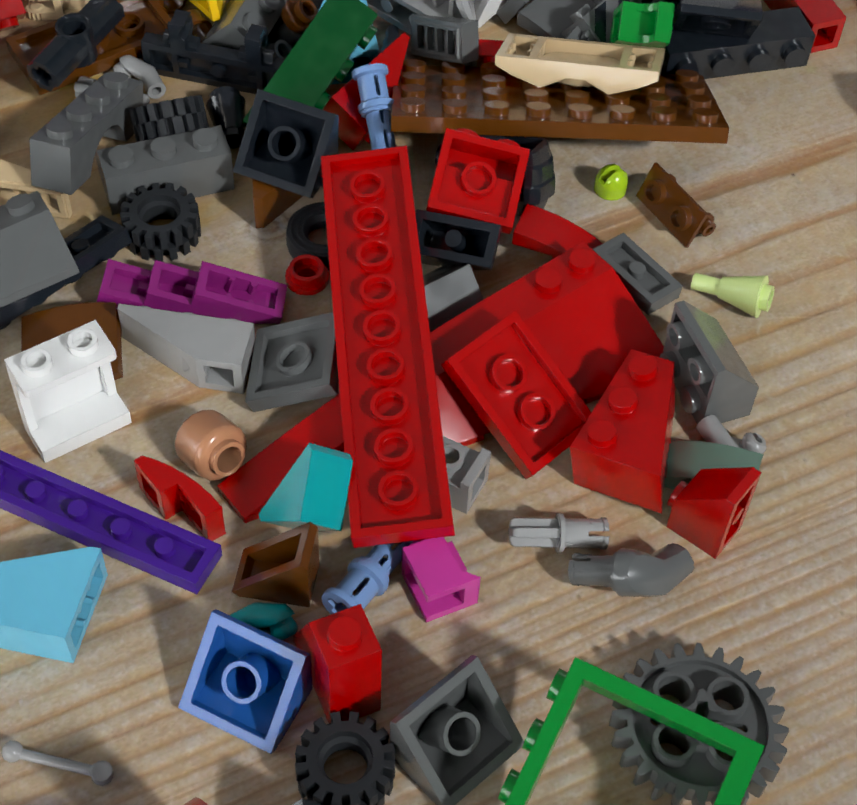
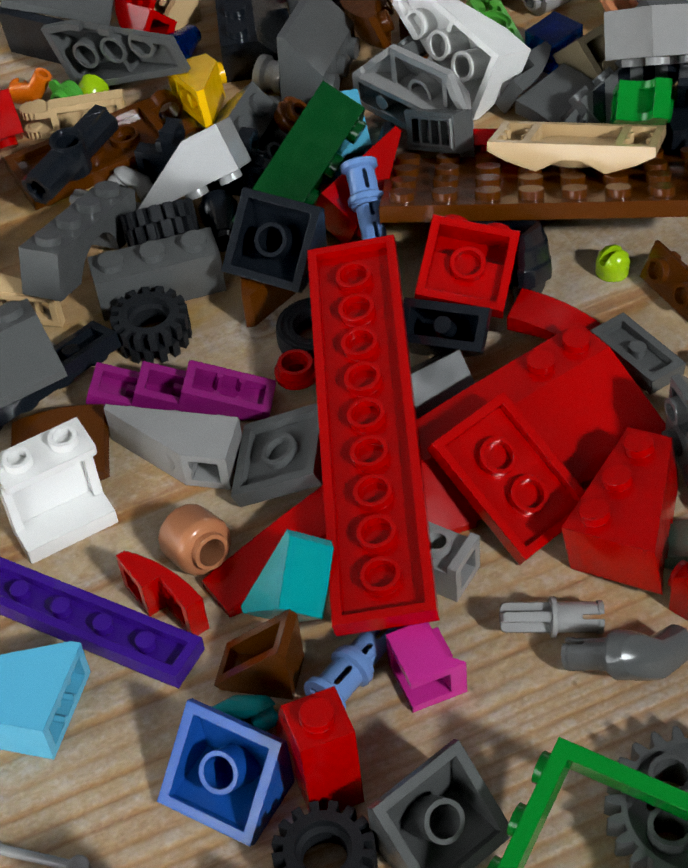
camera: 10 degrees right, 5 degrees down
(208, 58) = (199, 160): none -> light grey slope

